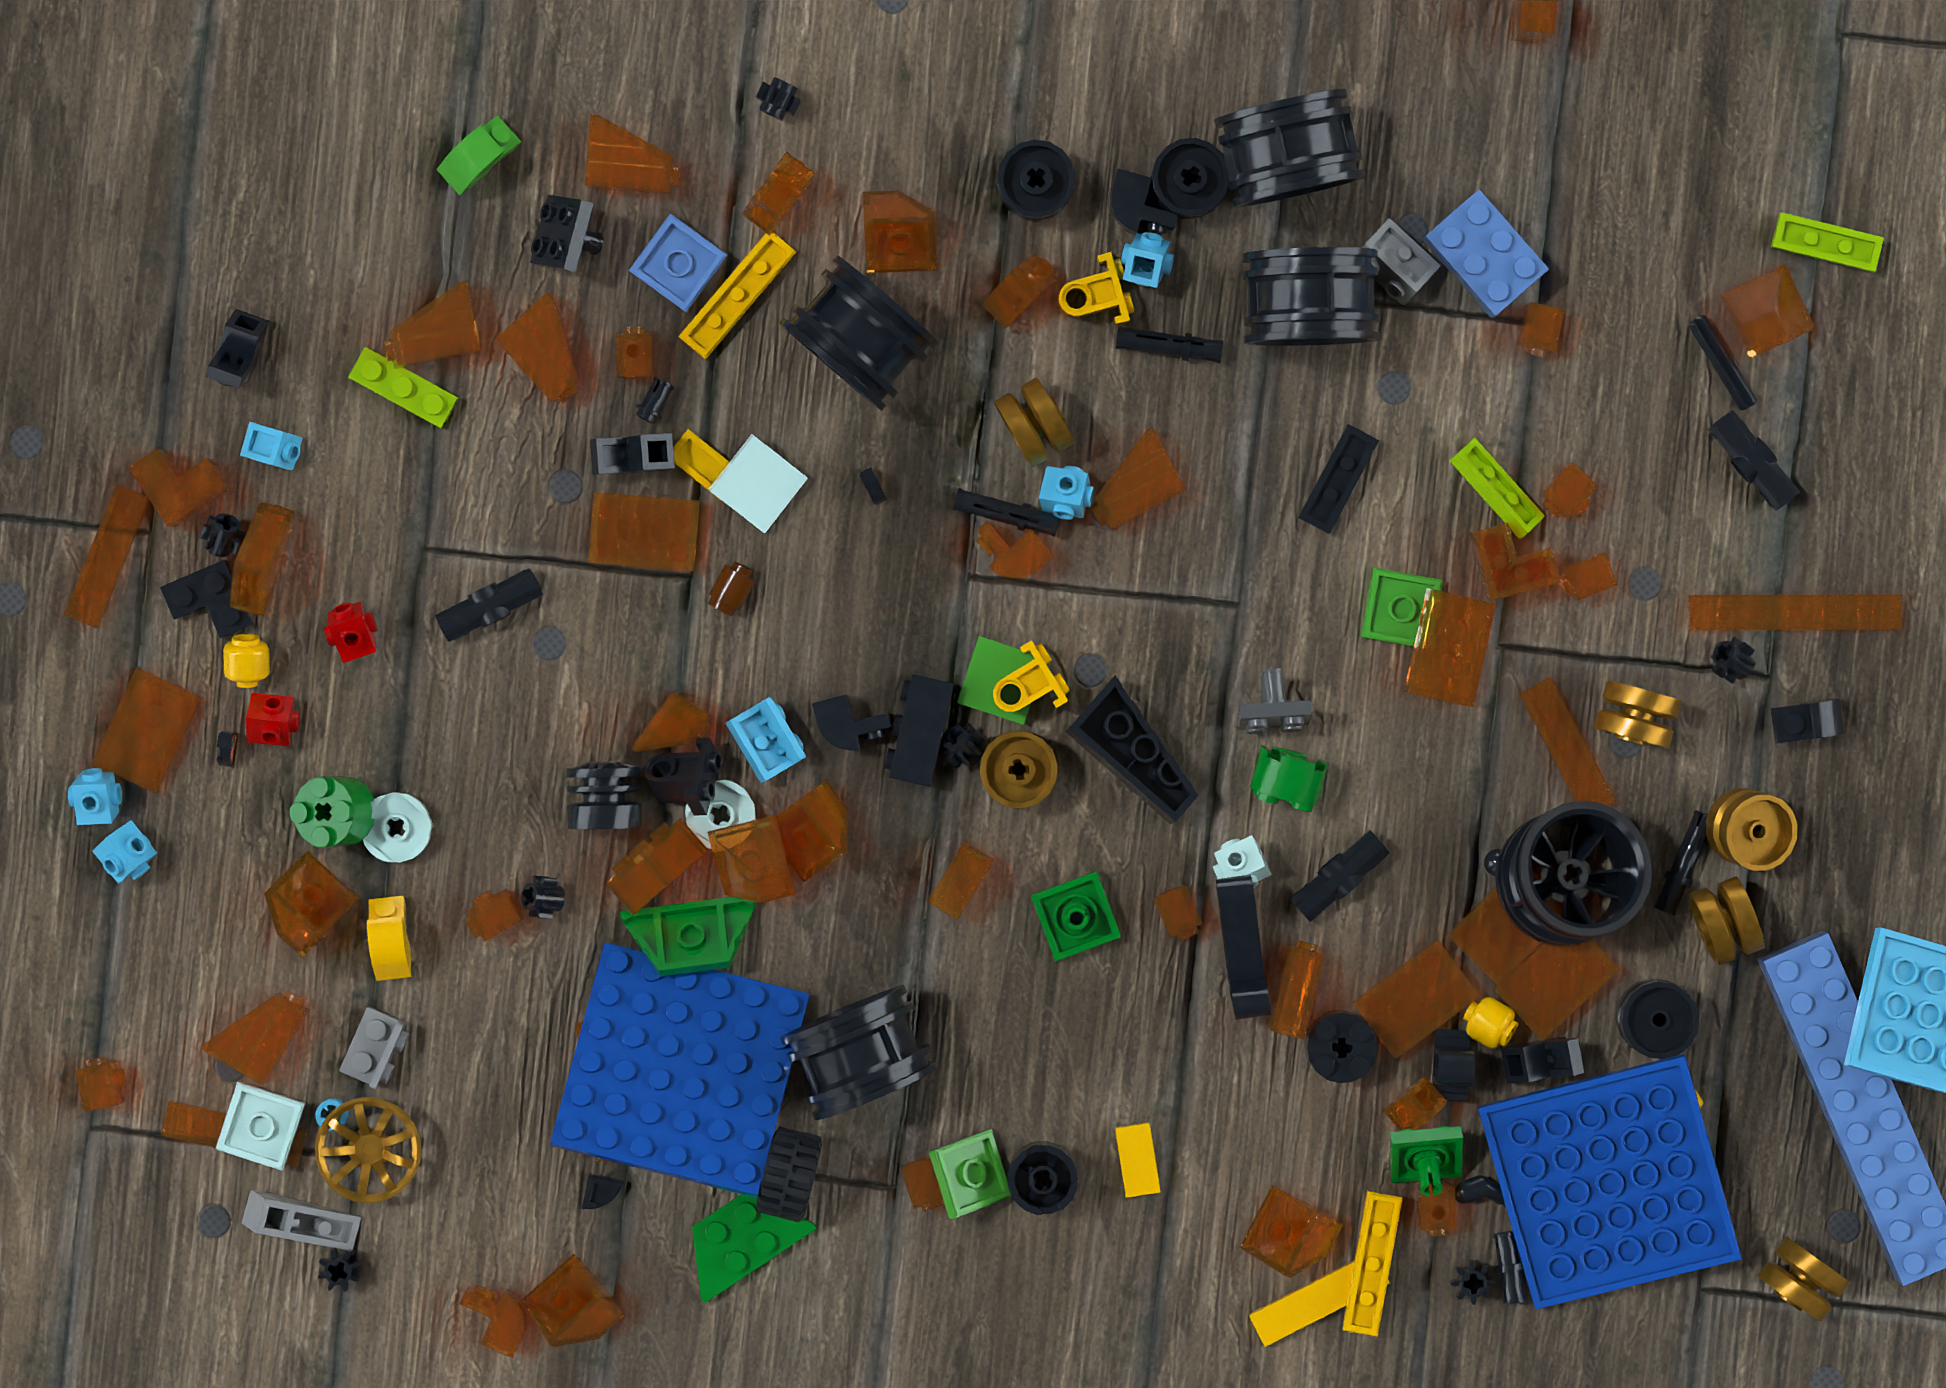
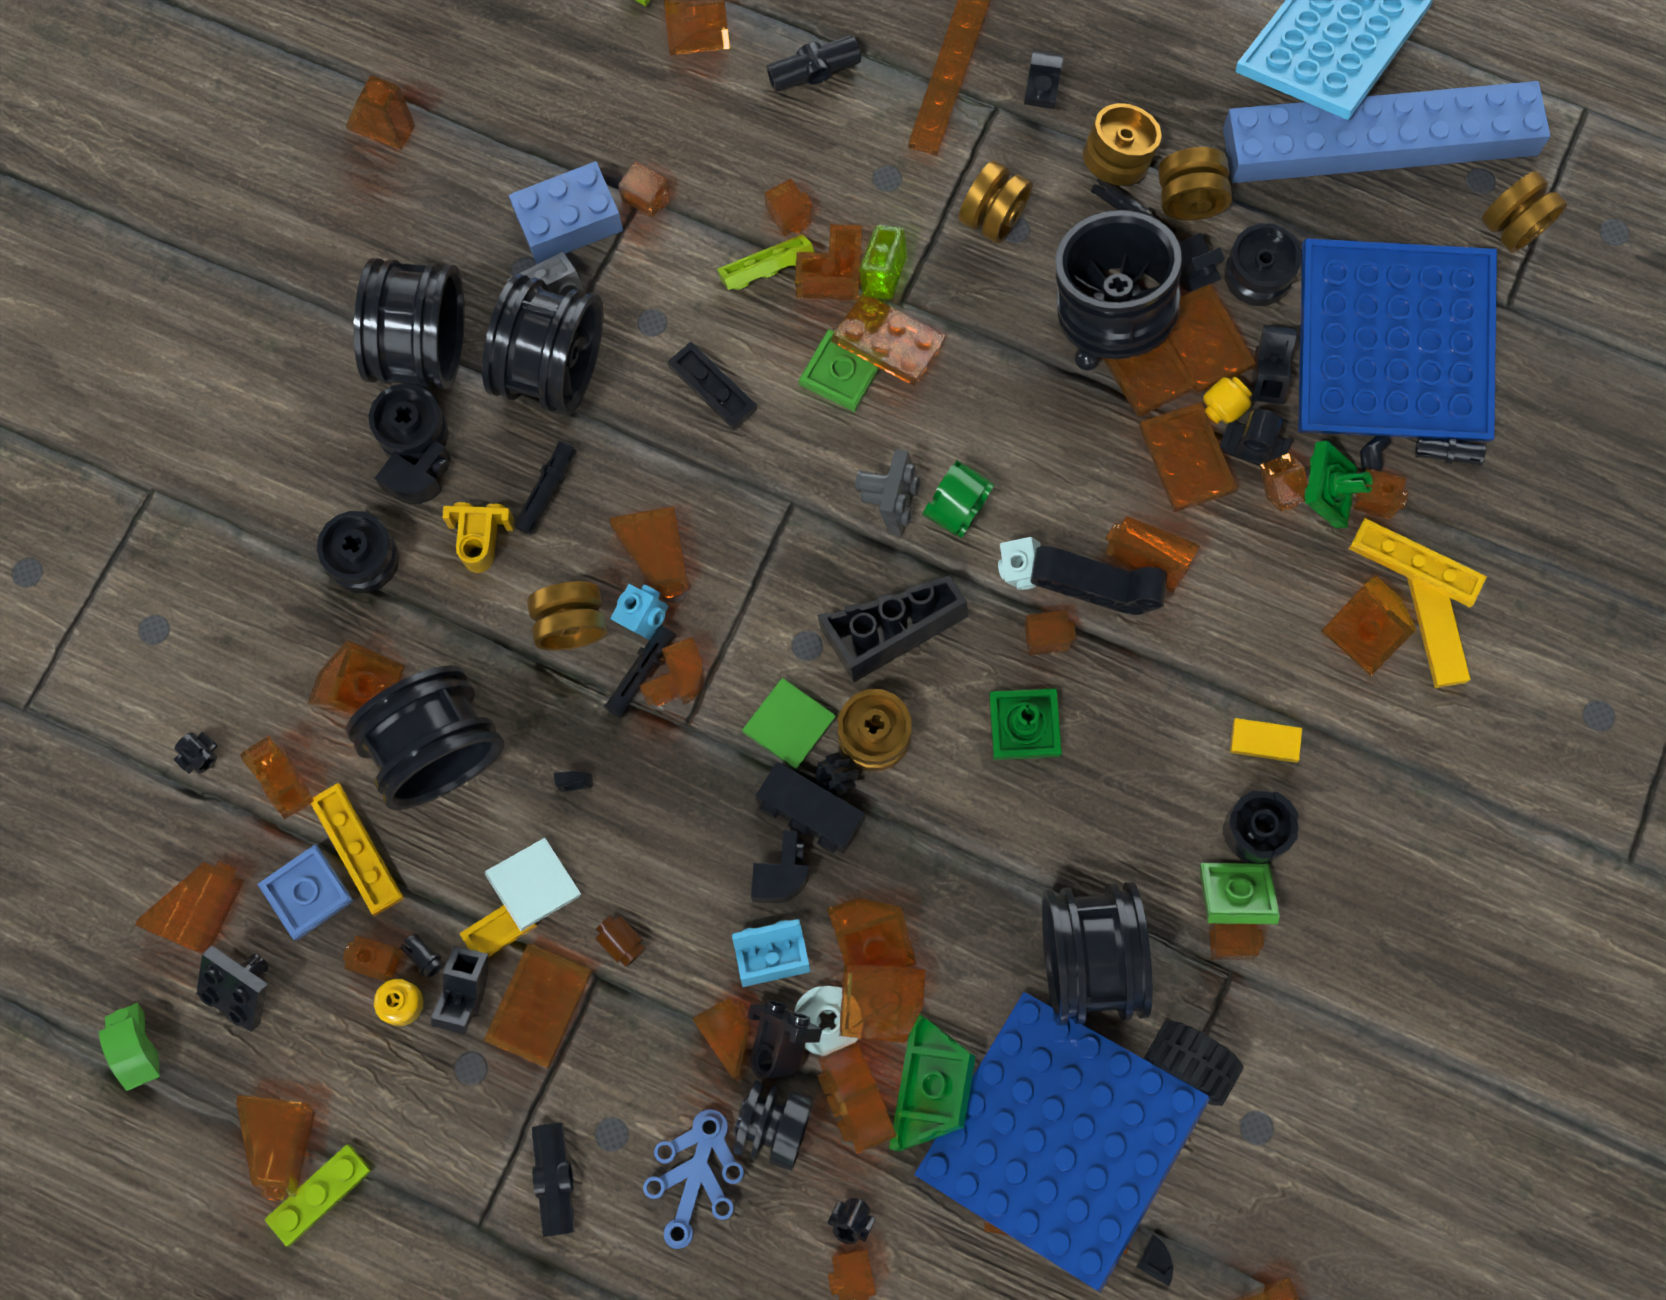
camera: 70 degrees left, 15 degrees down
(540, 737) = (697, 1172): none -> medium blue plant
(542, 349) = (333, 1045): clear orange slope -> none
(606, 409) = (409, 1004): none -> yellow head
(738, 1241) = (1243, 1138): green wing -> none
(960, 880) = (957, 810): clear orange brick -> none
(1019, 290) = (448, 598): clear orange pin -> none
(1033, 680) = (798, 692): yellow pin -> none
(1147, 259) = (475, 479): medium azure brick -> none
(1326, 1061) = (1222, 515): black brick -> none
(1340, 875) = (1059, 487): black piece -> none
(1479, 1288) = (1455, 484): black gear -> none
(1530, 616) = (883, 262): none -> clear neon green brick
(1565, 743) = (999, 275): clear orange tile -> none
(1587, 577) = (865, 209): clear orange brick -> none
(1637, 945) = (1198, 264): none -> black brick
(1722, 362) = (725, 66): black axle -> none
(1733, 660) = (974, 122): black gear -> none

